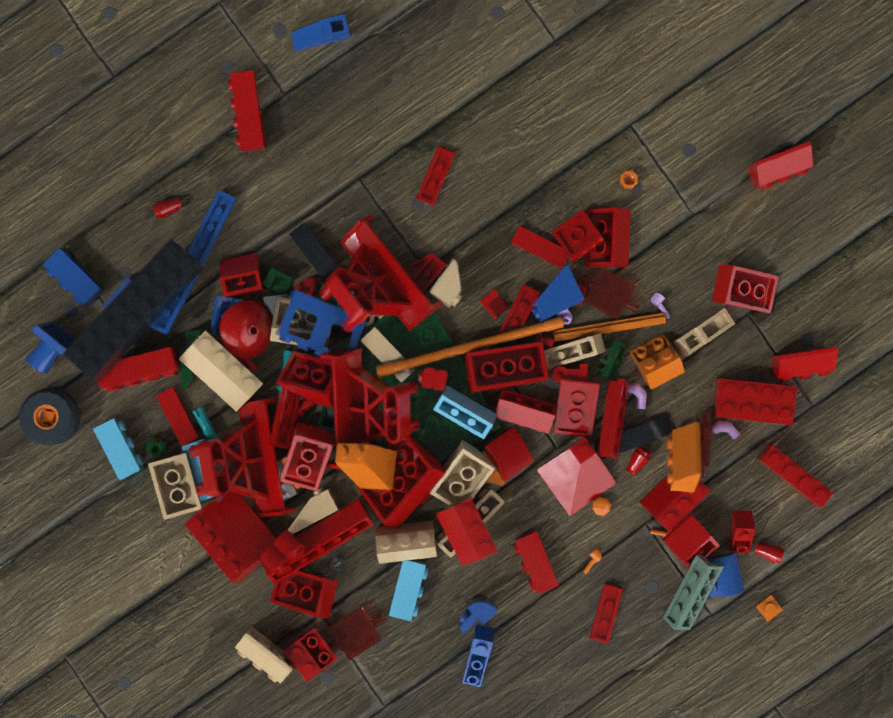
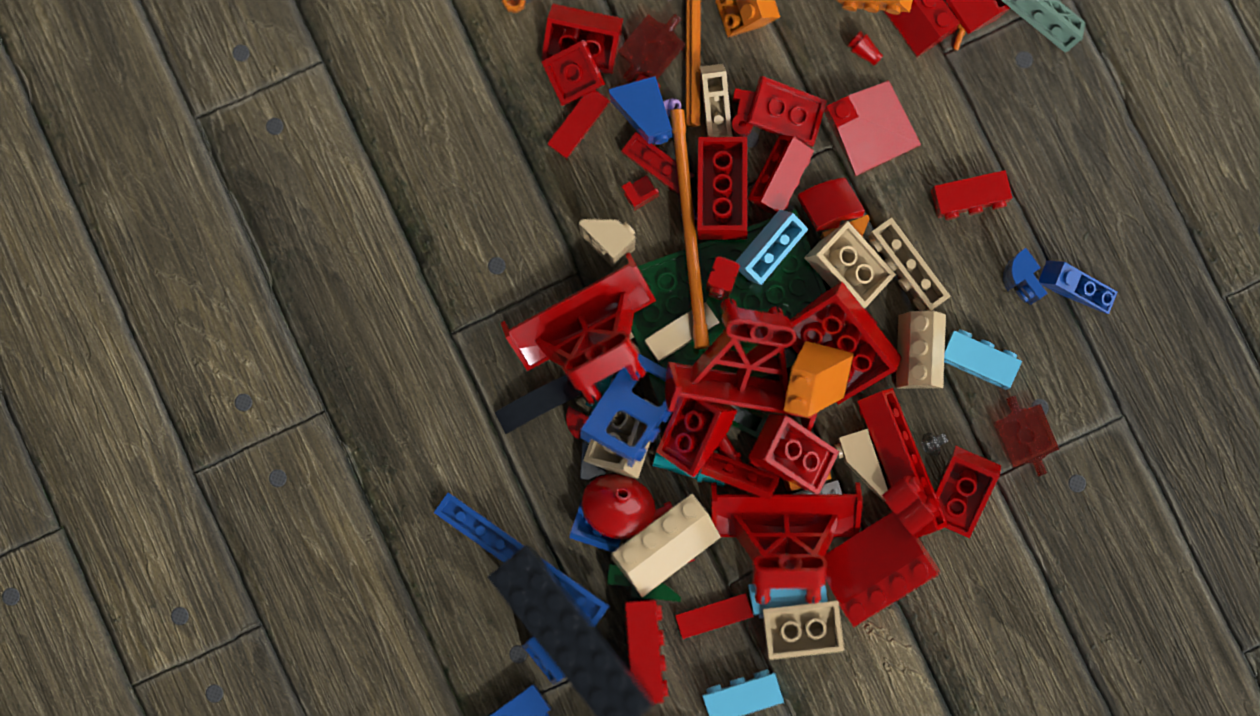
camera: 85 degrees left, 5 degrees down
(155, 445) = (746, 649): dark green tile -> none
(166, 207) = (444, 585): red cone -> none
(205, 424) = (730, 580): teal pin -> none
(241, 275) = (547, 501): red slope -> none
(248, 111) = (338, 457): red brick -> none
(265, 655) = (1037, 553): tan slope -> none
(278, 281) = (564, 457): dark green panel -> none
(310, 654) = (1043, 495): red slope -> none
(321, 33) = (259, 348): blue slope -> none
(426, 271) = (583, 267): red wing -> none
(435, 176) = (465, 237): red tile -> none
(466, 531) = (921, 268): red slope -> none
(546, 340) = (699, 131): red tile -> none
(596, 556) = (977, 120): orange hand -> none
(601, 506) = (914, 103): orange tile -> none
(606, 613) = (1048, 121): red tile -> none
(612, 364) = (728, 52): dark green plate -> none
(613, 419) = (808, 68): red fence -> none
(640, 393) = (783, 31): lavender arm -> none
(644, 433) = (835, 48): black slope -> none

